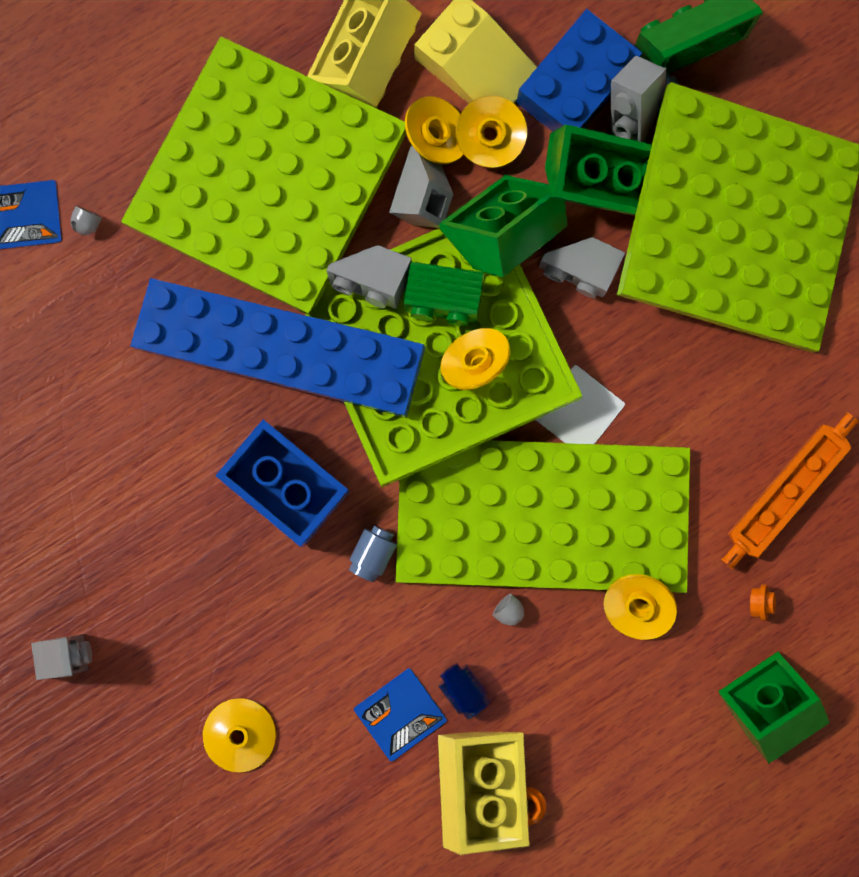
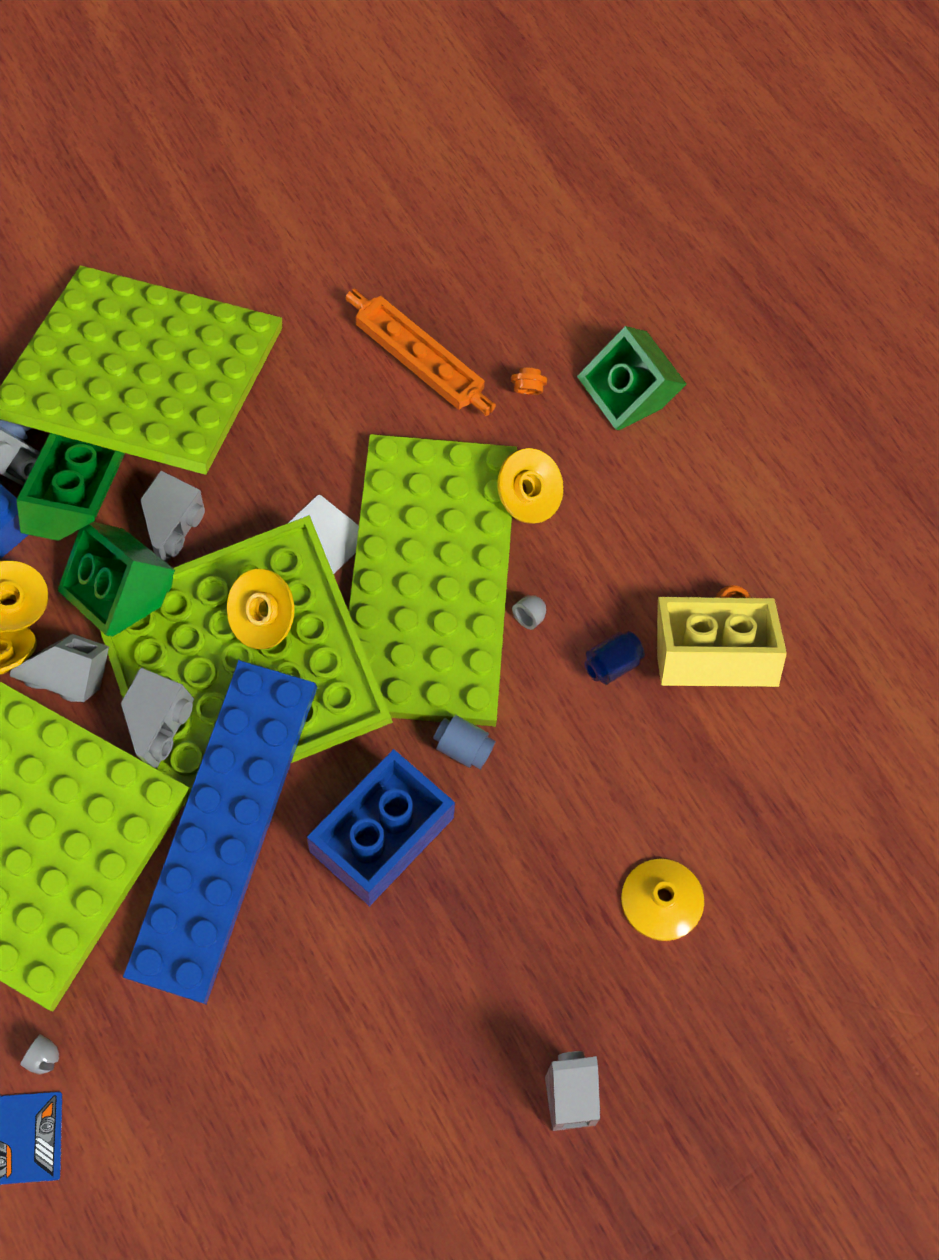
camera: 90 degrees left, 20 degrees down
(400, 714) = (639, 729): blue sticker -> none
(443, 293) = (184, 640): green brick -> none

